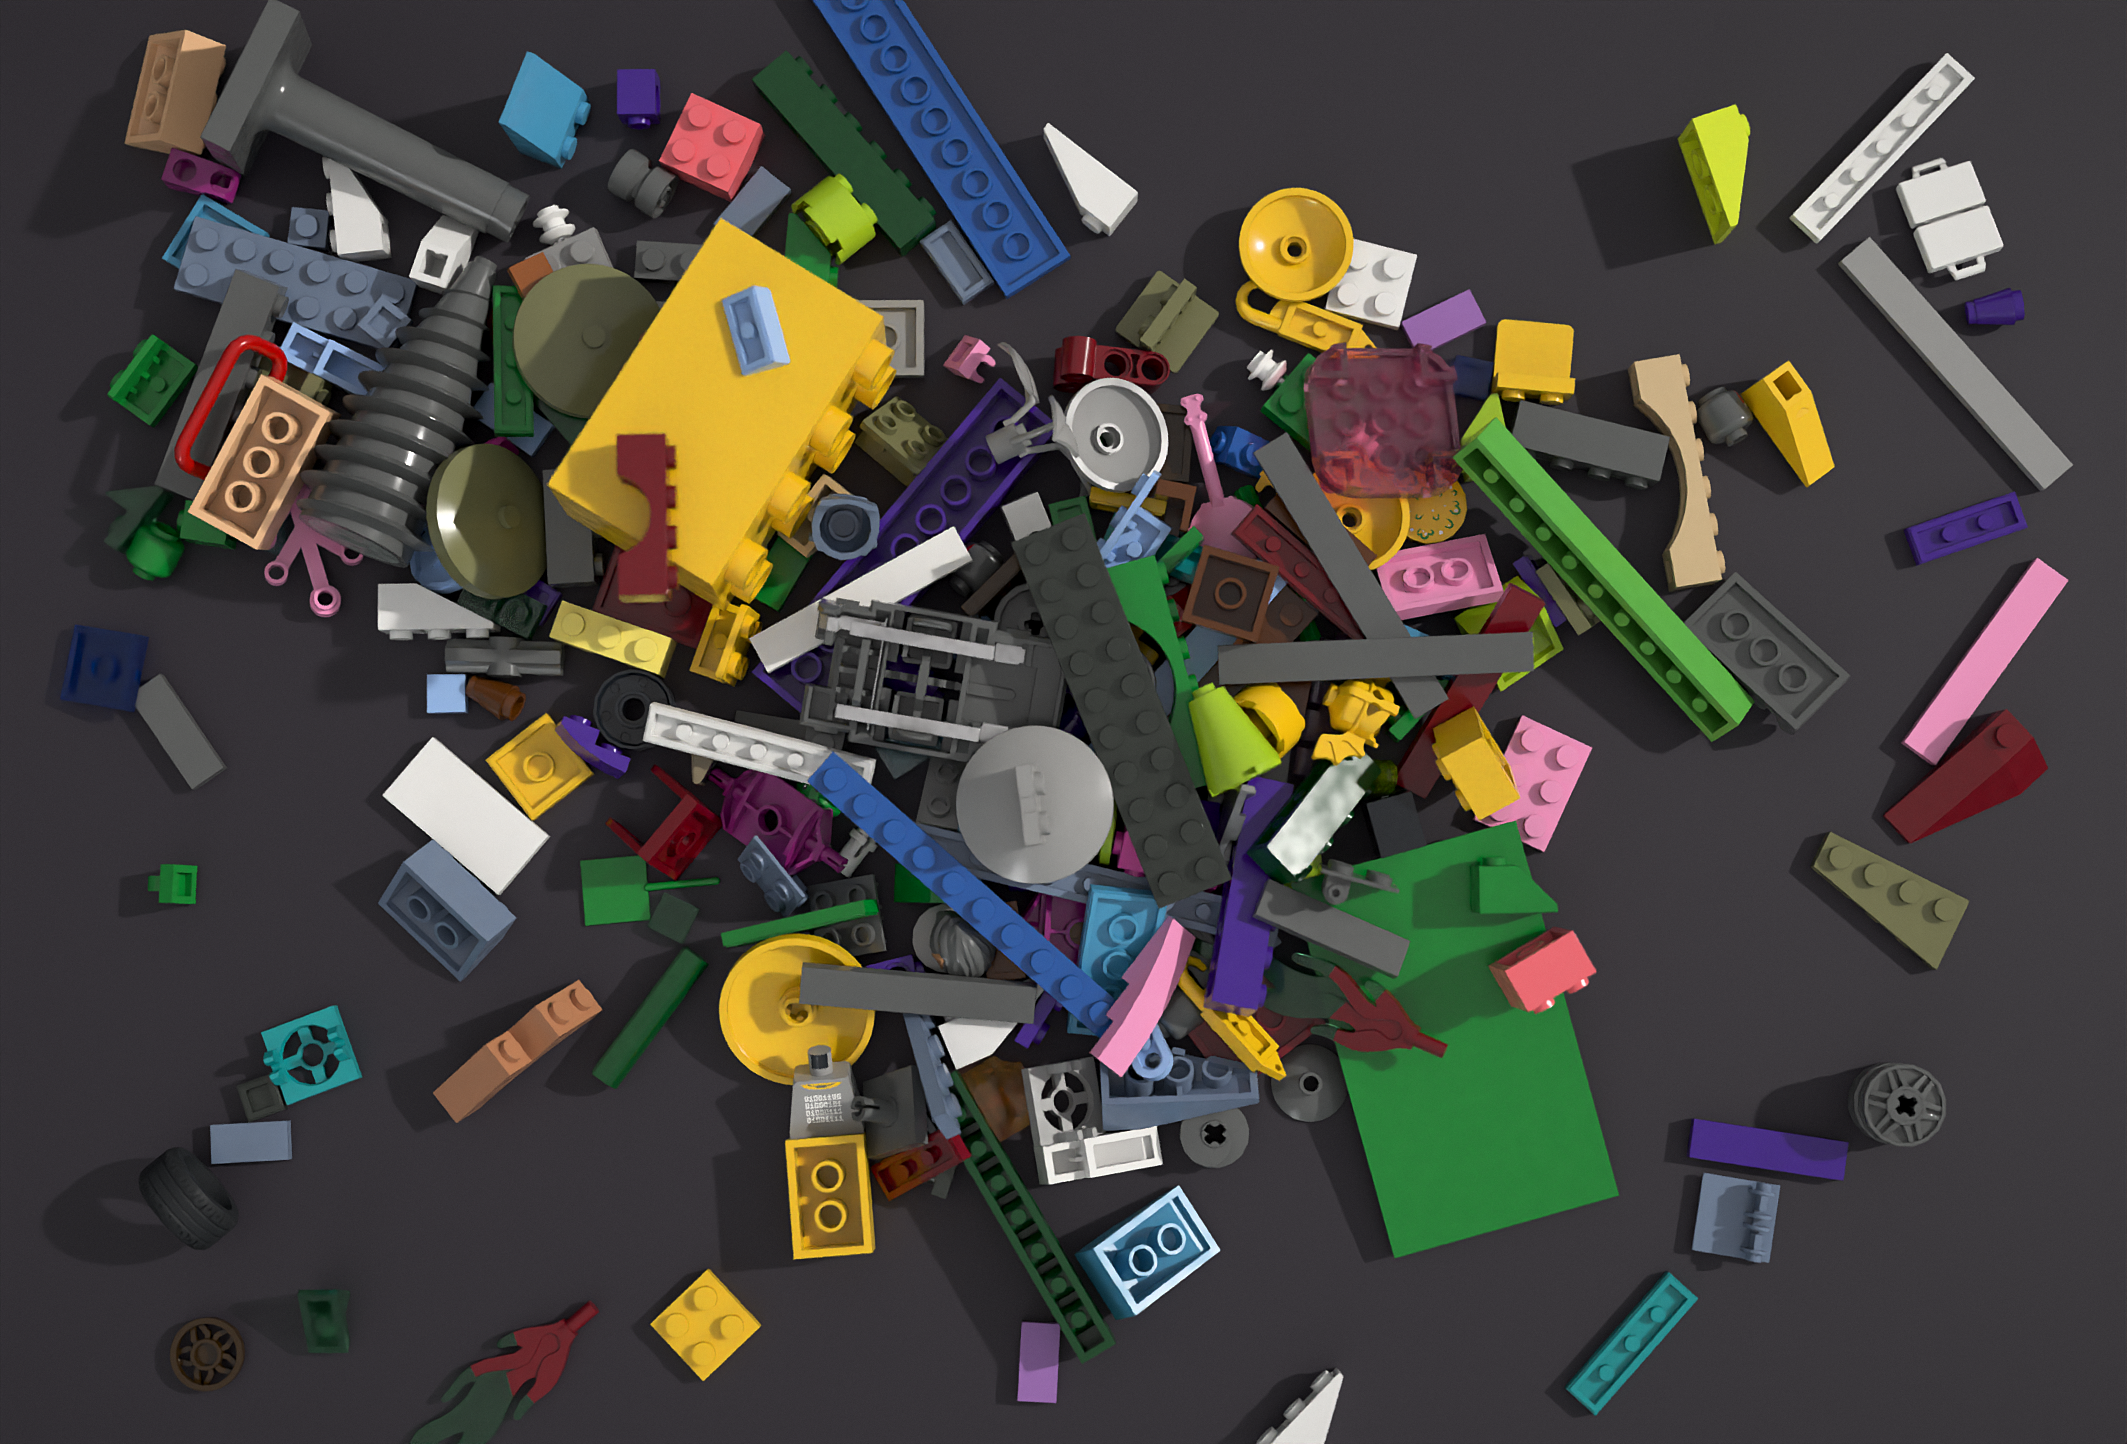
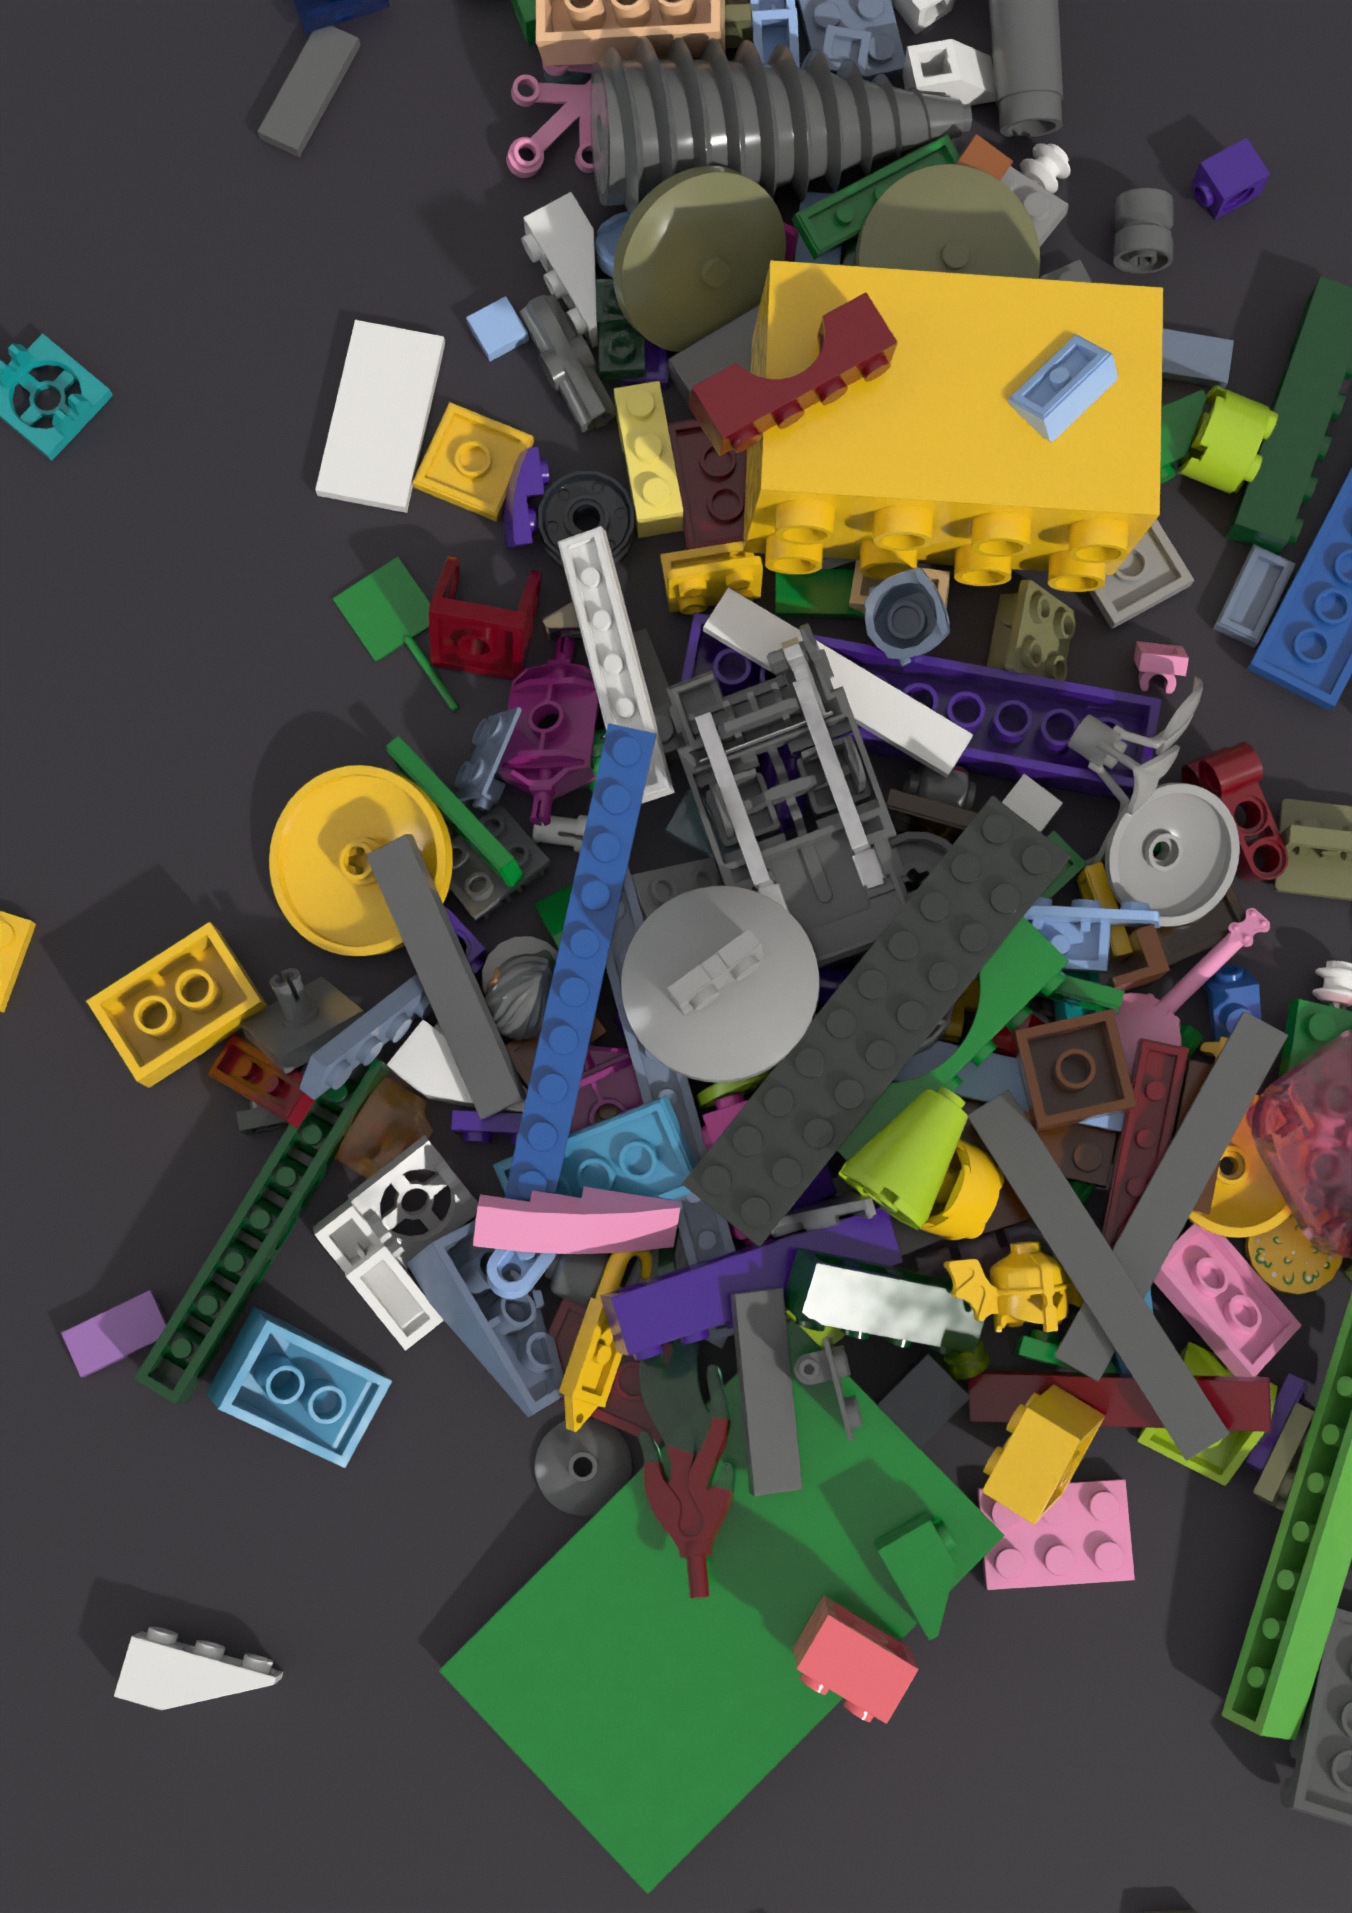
camera: 55 degrees right, 5 degrees down
(175, 884) = (150, 167): green tile -> none
(446, 909) = (271, 446): sand blue slope -> none
(497, 697) = (521, 378): reddish brown cone -> none
(516, 1050) = (147, 586): nougat arch -> none
(544, 112) = (1158, 84): dark azure slope -> none
(650, 1017) = (269, 714): dark green brick -> none
(673, 917) = (390, 683): clear green tile -> none
(712, 147) = (1223, 279): coral brick -> none
(823, 1097) = (279, 937): light grey torso -> none
(1214, 1153) = (448, 1401): dark grey piece -> none

